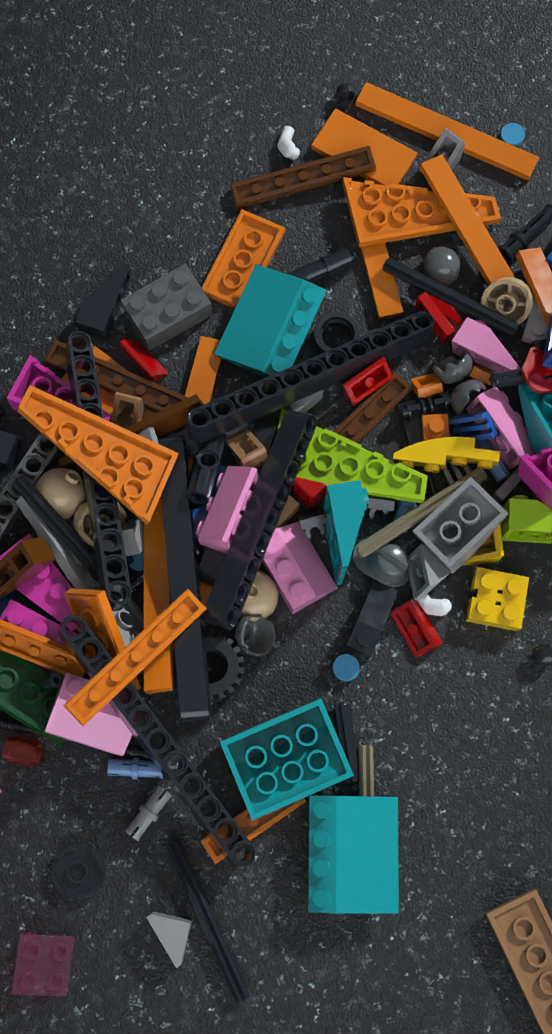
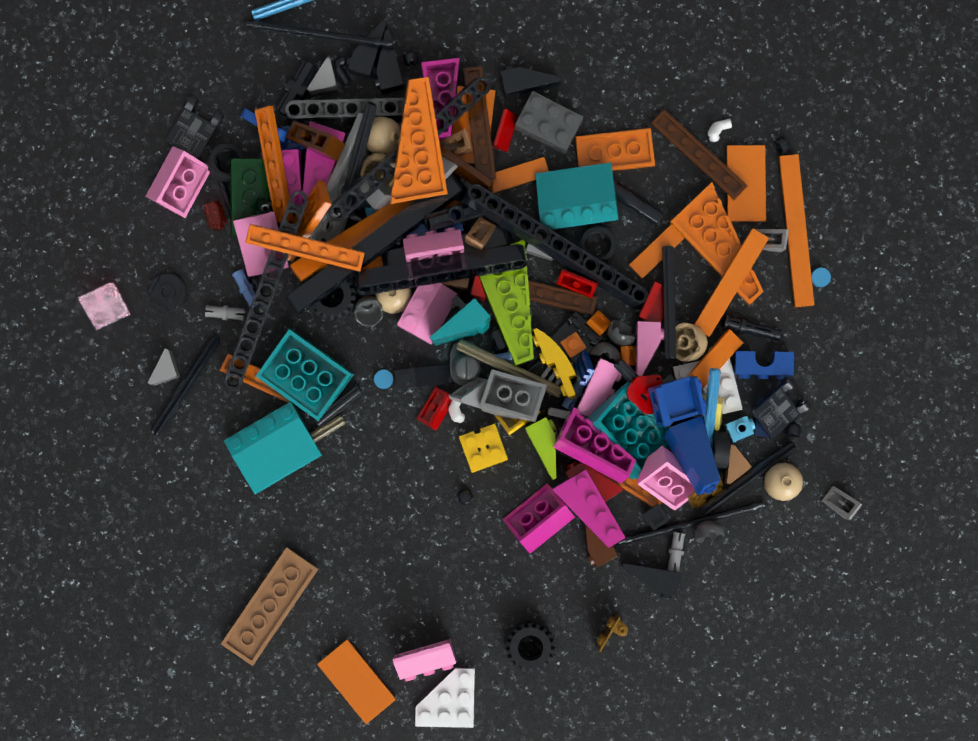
camera: 65 degrees right, 10 degrees up
(442, 265) = (692, 284): dark grey hair -> none

